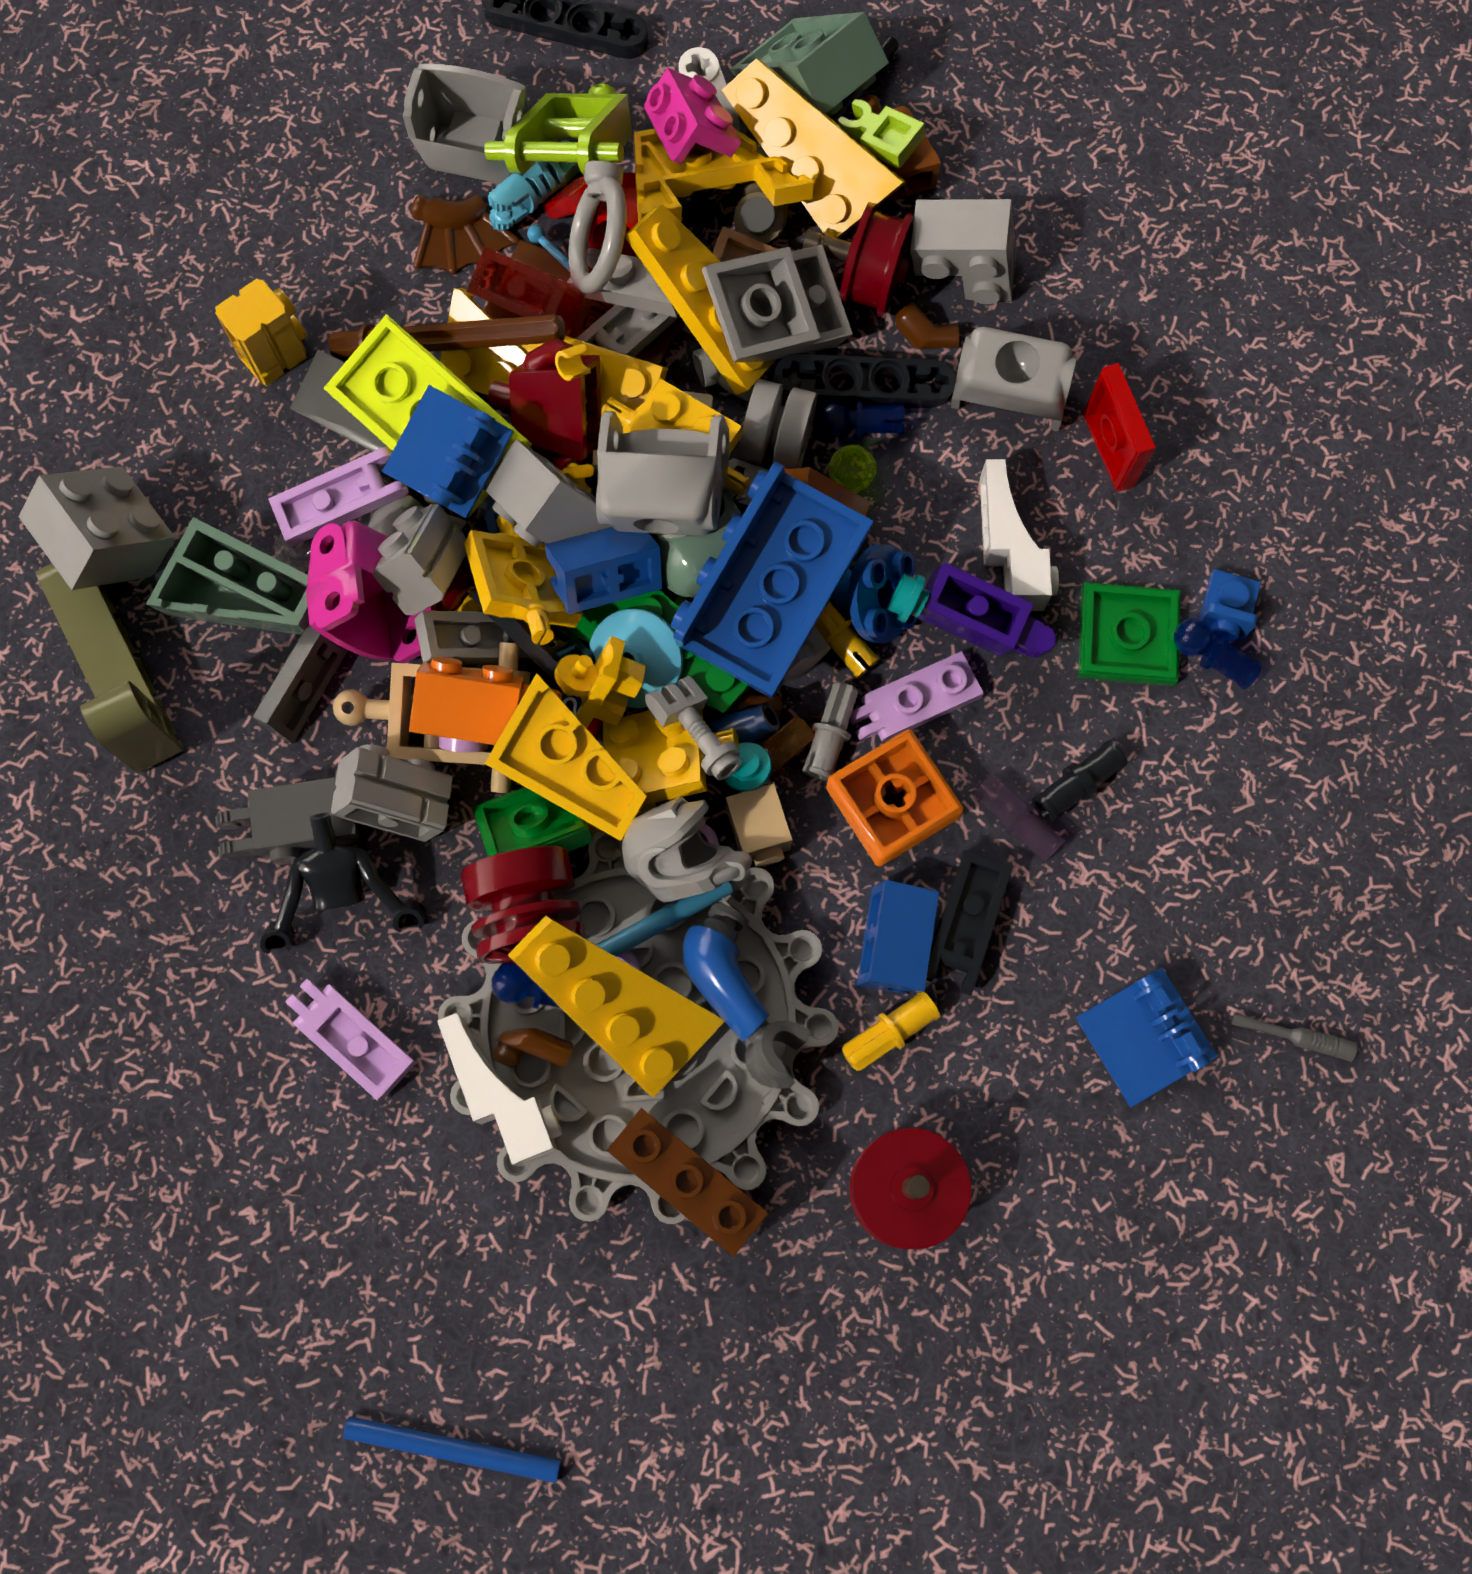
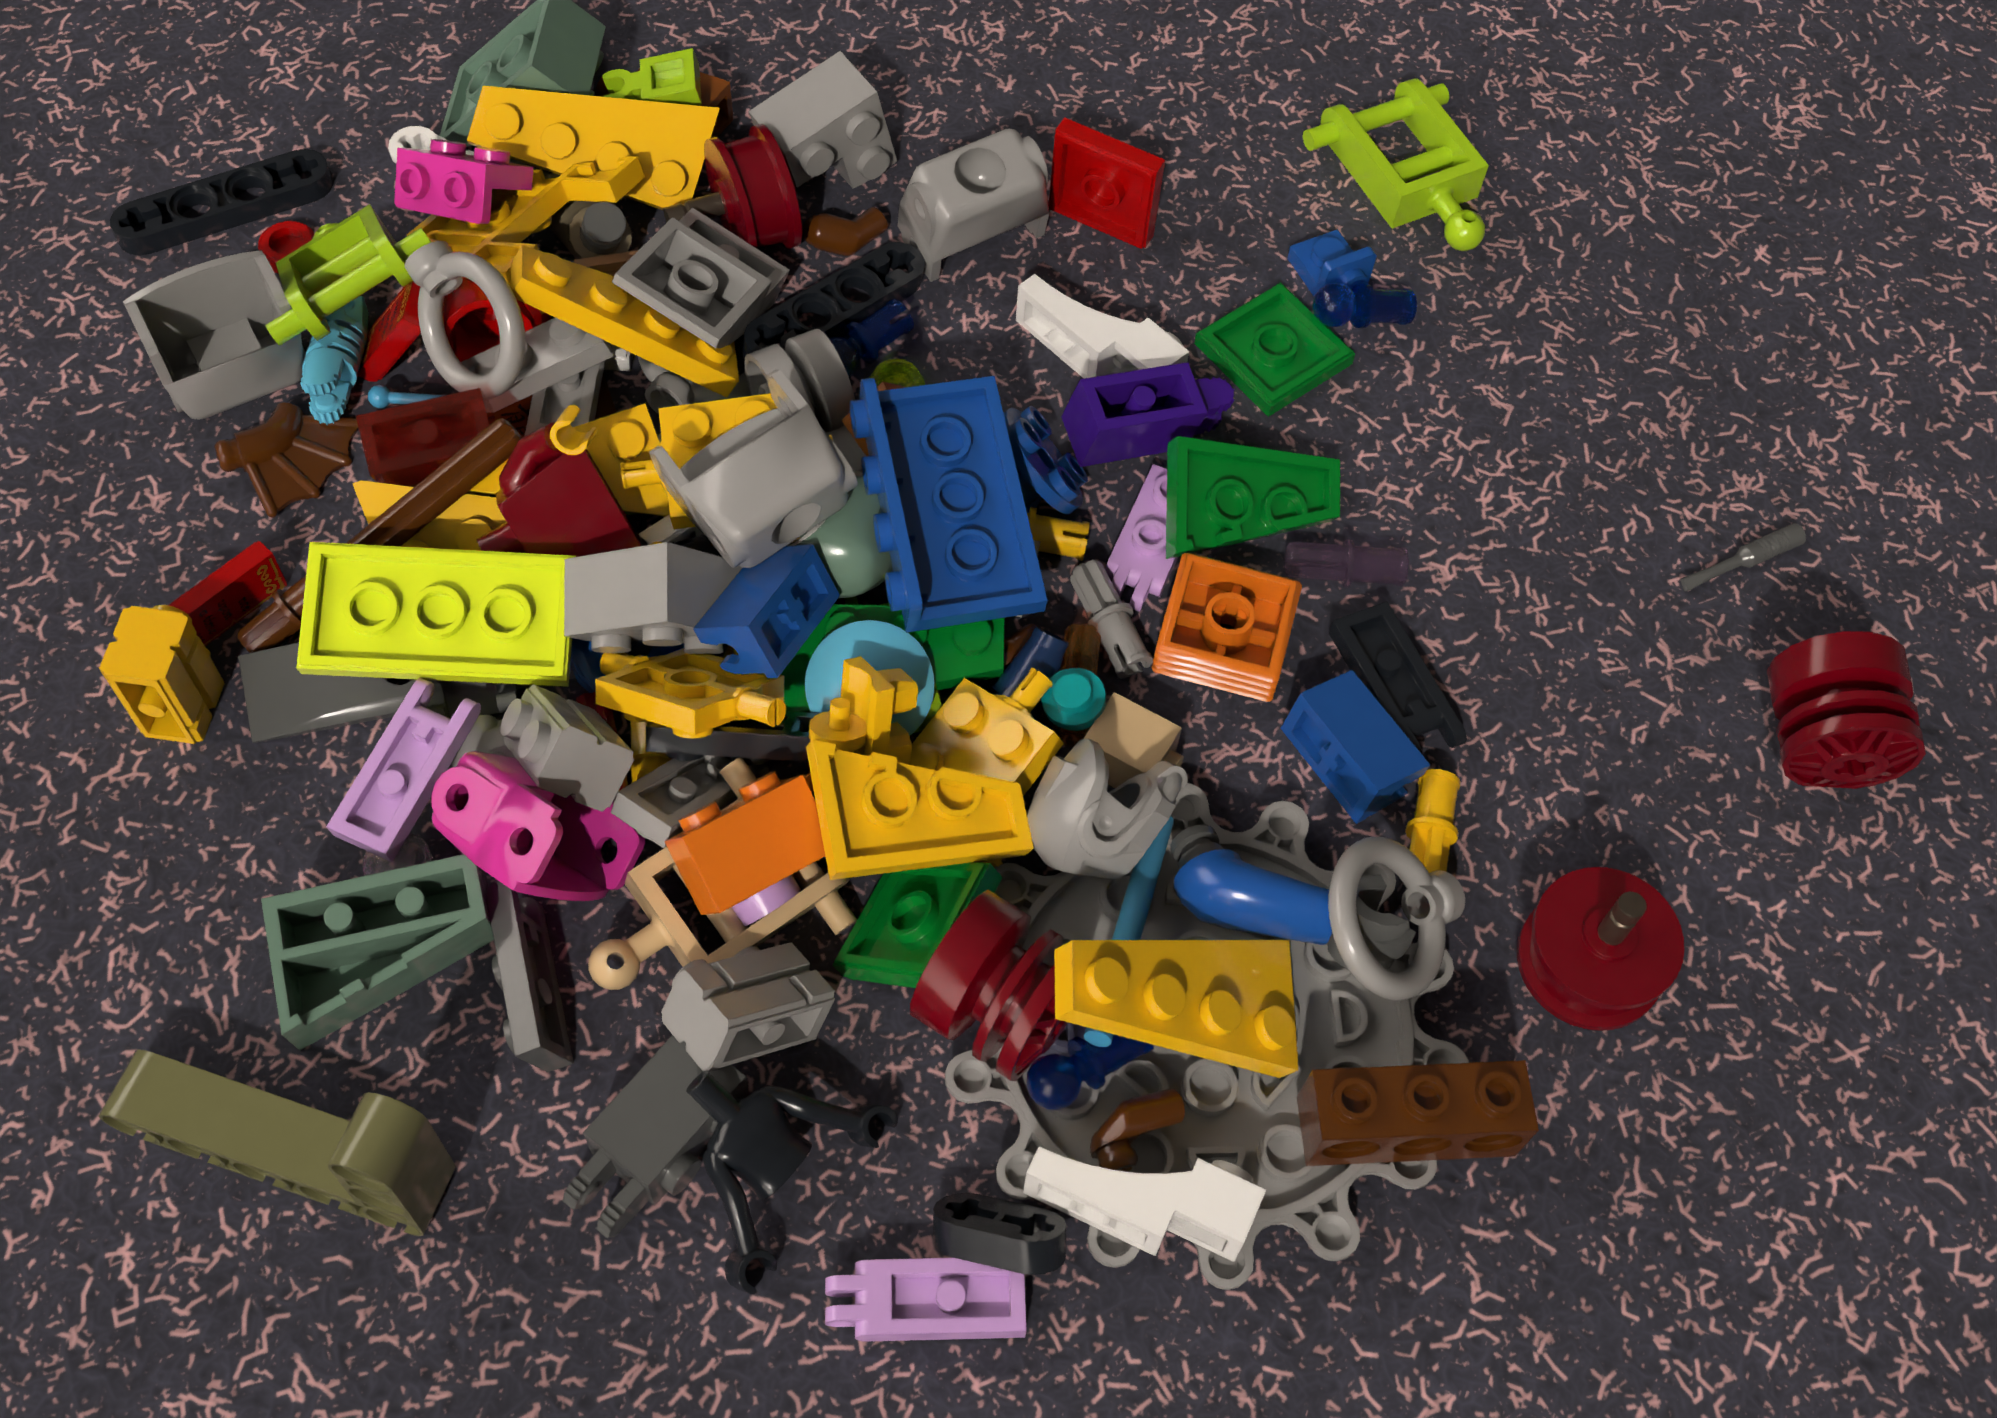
camera: 45 degrees left, 15 degrees down
(96, 527) = (142, 1002): light grey brick -> none
(339, 304) = (231, 592): none -> red tile
(417, 1035) = (999, 1233): none -> black beam
(448, 451) = (500, 623): blue hinge -> none
(575, 77) = (283, 239): none -> red tile
(682, 704) = (961, 680): light grey hinge -> none
(831, 1072) = (1440, 889): none -> light grey piece
(909, 597) = (1075, 435): teal plate -> none
(990, 718) = (1243, 493): none -> green wing
(1079, 781) = (1363, 491): black pin -> none
(1146, 1037) = (1638, 654): blue hinge -> none
(1232, 1185) = (1845, 710): none -> dark red wheel
(1359, 610) = (1385, 182): none -> lime piece

